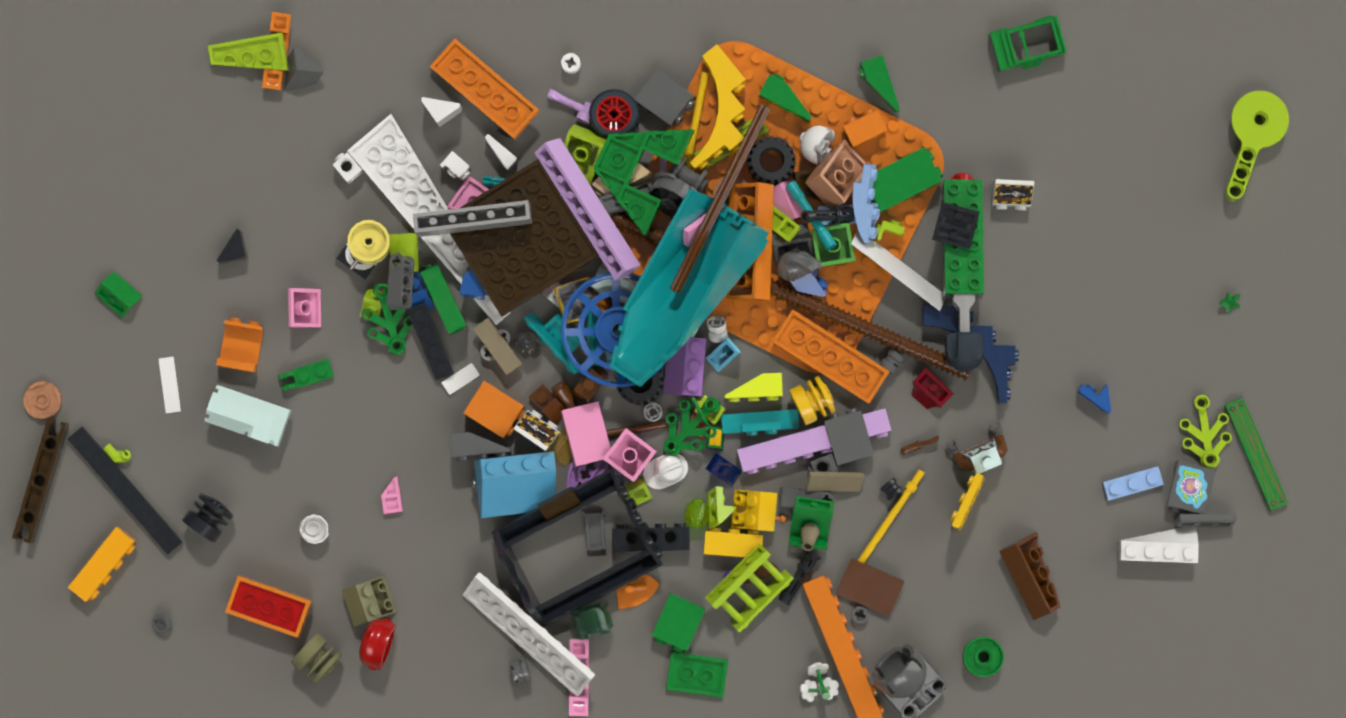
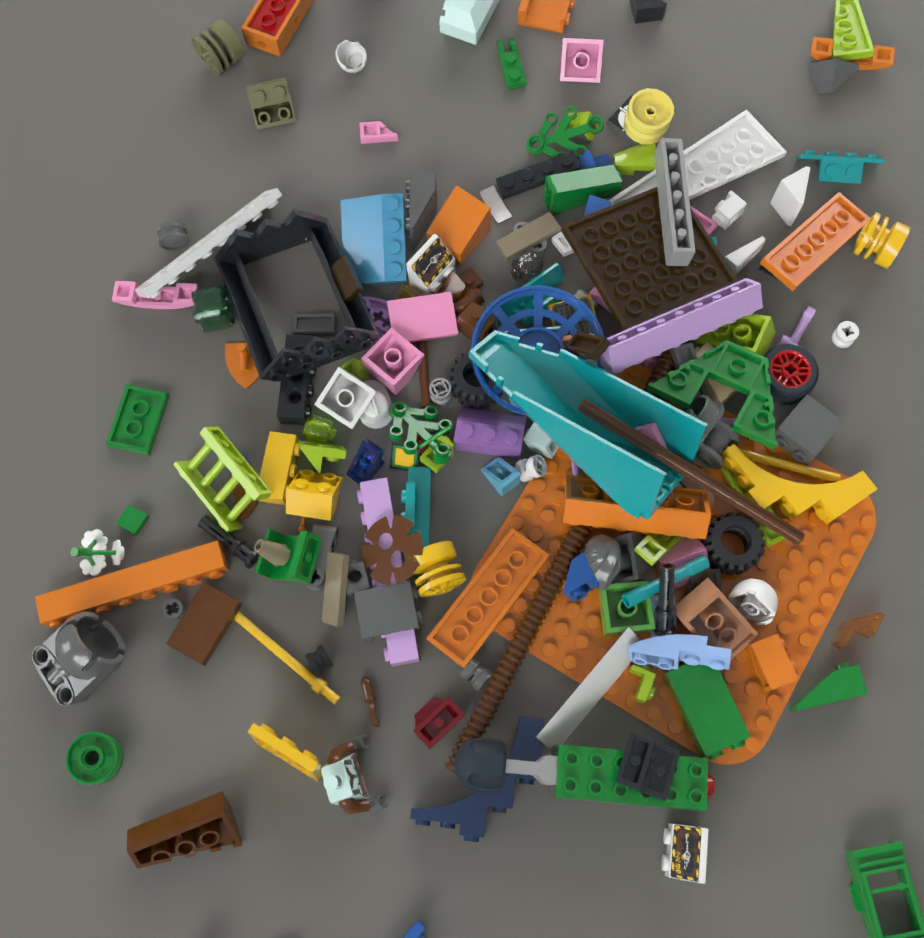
camera: 95 degrees right, 15 degrees down
(353, 173) = (727, 108): white brick -> none
(377, 643) = (222, 99): red piece -> none
(400, 282) = (618, 146): dark grey piece -> none
(401, 64) = (840, 168): none -> teal bracket
(481, 32) = (881, 240): none -> yellow wheel
(619, 288) = (587, 345): none -> dark brown tile
(667, 492) = (345, 397): none -> white slope
(678, 623) = (198, 400): green brick -> none
(764, 385) = (460, 516): neon yellow slope -> none
(781, 95) = (815, 560): green slope -> none
(787, 662) = (132, 519): none -> green tile
(804, 452) = (382, 557): none -> reddish brown piece
(826, 53) = (864, 626): none -> clear orange slope

